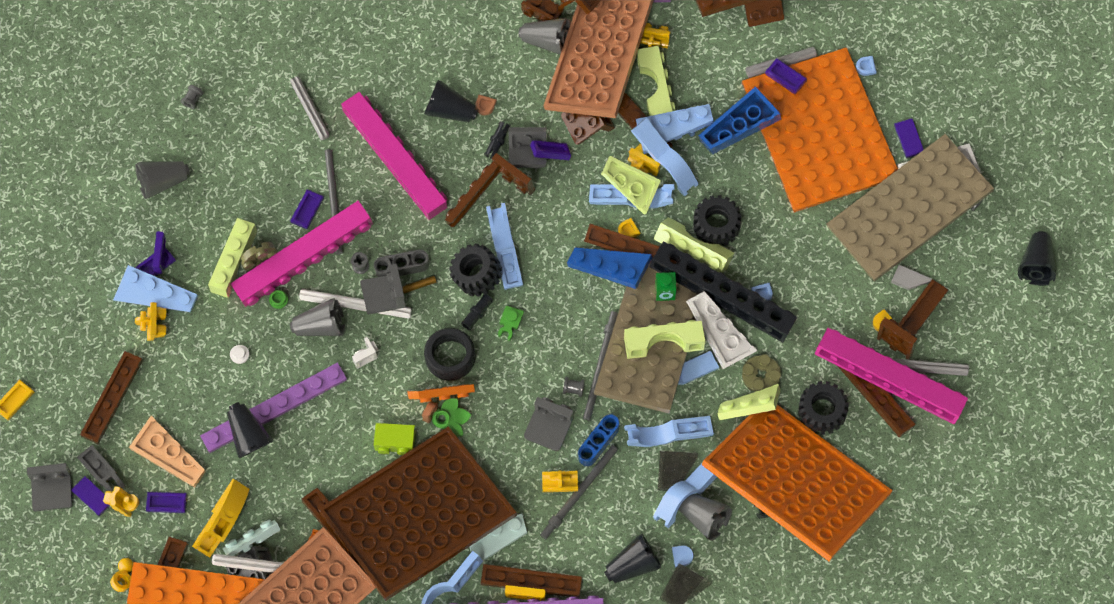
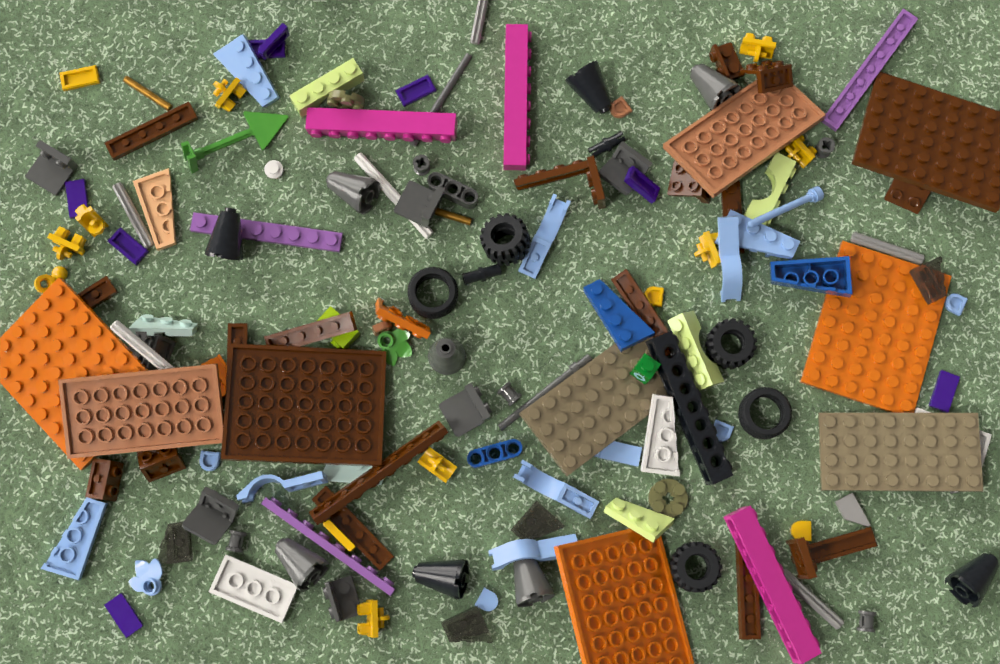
camera: 30 degrees right, 10 degrees up
(82, 371) = (149, 94): none -> pearl gold bar
(99, 468) = (99, 182): dark grey hinge -> none
(105, 537) = (60, 238): none -> yellow hips
(150, 474) = (133, 215): none -> light grey axle
(202, 327) = (262, 126): none -> bright green piece
(223, 518) = (157, 293): yellow slope -> none
(278, 299) = (337, 147): bright green plate -> none
(367, 355) = (366, 244): white bracket -> none
(379, 450) = (314, 331): none -> reddish brown plate
(499, 394) = (446, 362): none -> dark grey cone
(510, 319) = (503, 299): bright green plate -> none
(517, 524) = (374, 475): none -> reddish brown plate
(556, 521) = (410, 493): dark grey bar -> none
(608, 195) = (678, 271): light blue piece -> none
(631, 182) = (685, 260): yellowish green wing -> none
(668, 16) = (824, 153): none -> dark grey bush
(687, 335) = (631, 424): yellowish green arch -> none
(691, 63) = (813, 195): none -> light blue piece
(785, 272) = (782, 403): none -> black tyre
(786, 76) = (881, 264): dark purple tile -> none
(832, 61) = (930, 280): none -> clear smoke wing
(984, 351) = (866, 621): none -> dark grey bush

